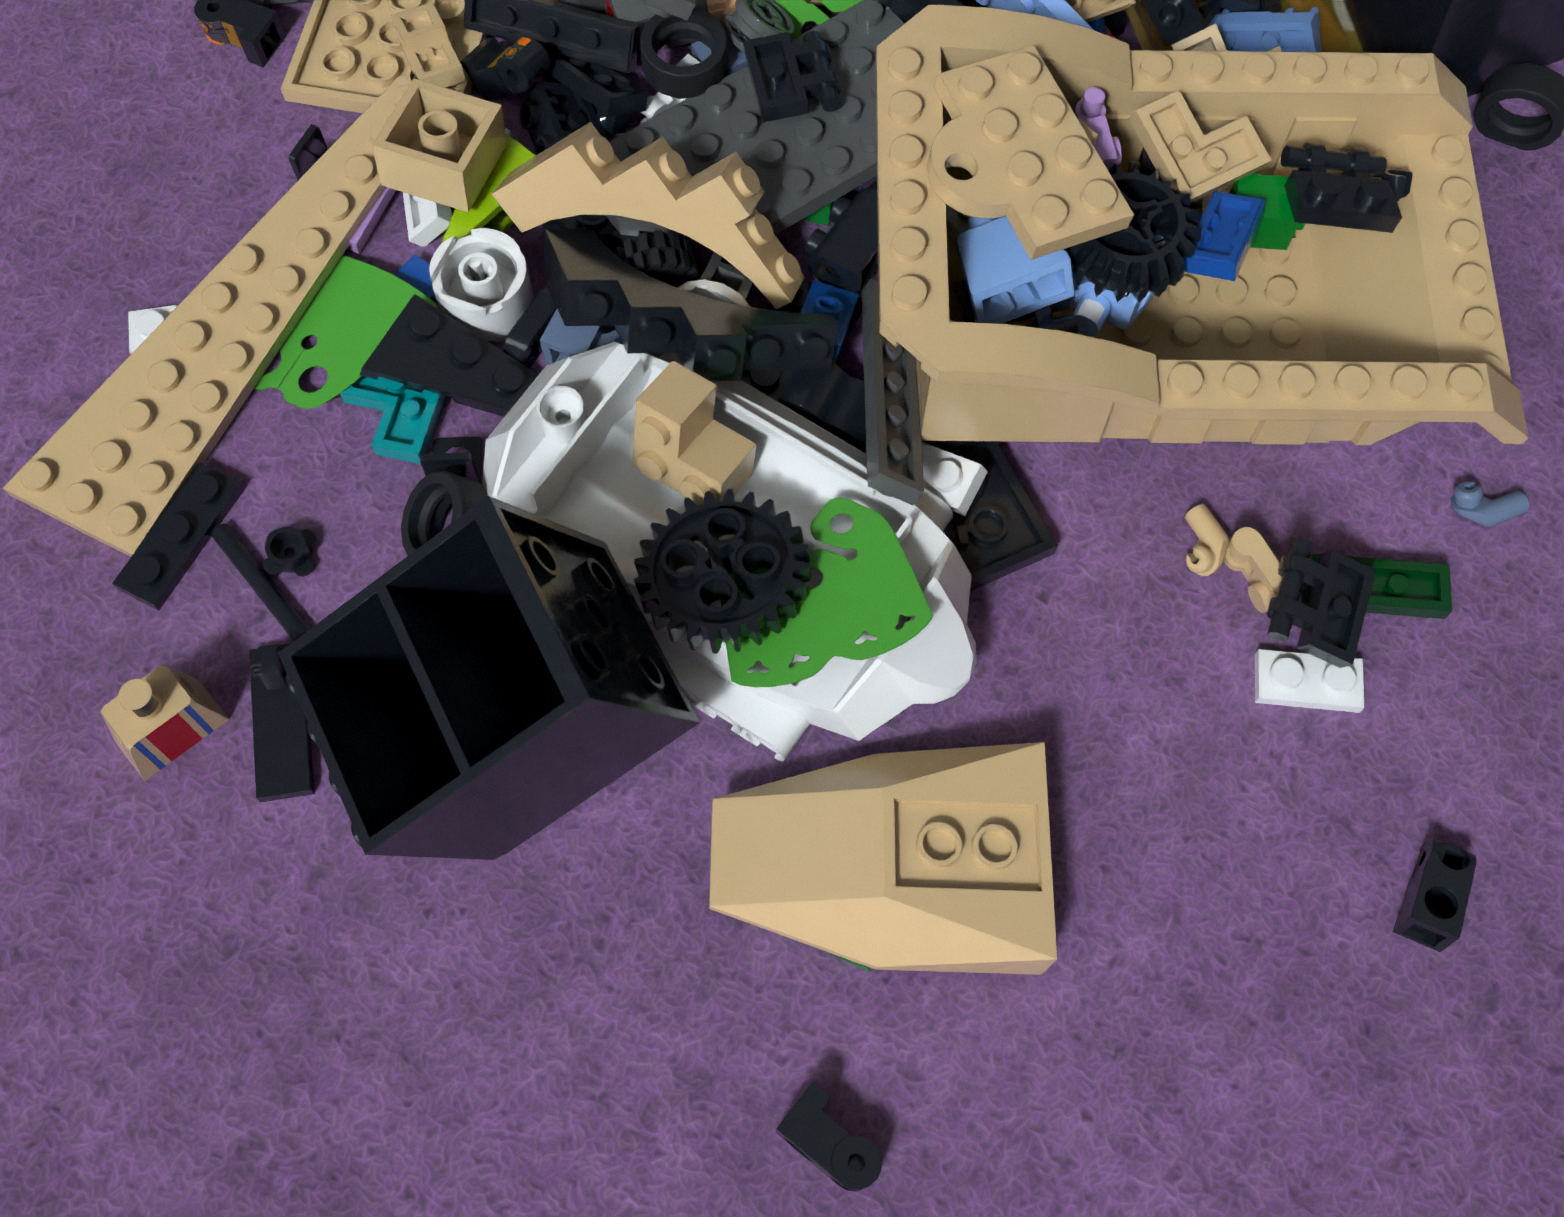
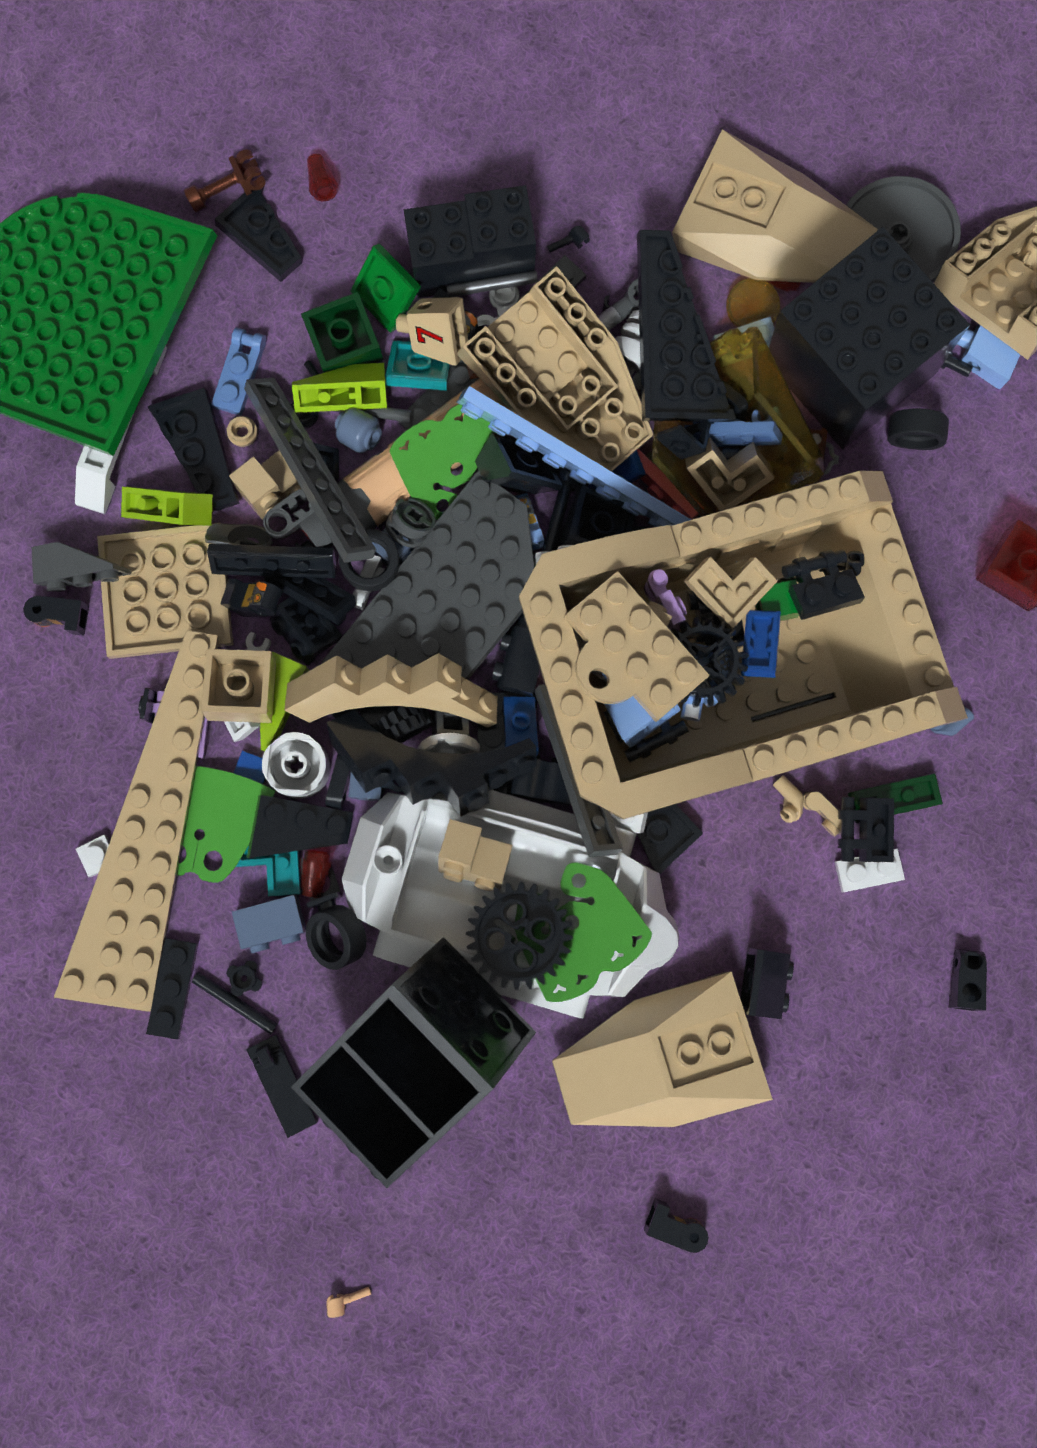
camera: 20 degrees left, 15 degrees up
(161, 718) = (216, 1111): tan torso -> none
(223, 1086) = (336, 1306): none -> light nougat hand
(357, 481) = (269, 922): none -> sand blue brick
(428, 46) = (194, 598): tan slope -> none
(454, 427) = (314, 871): none -> clear red cone
(777, 78) = (438, 567): black plate -> none
(1097, 786) = (765, 983): none -> black slope

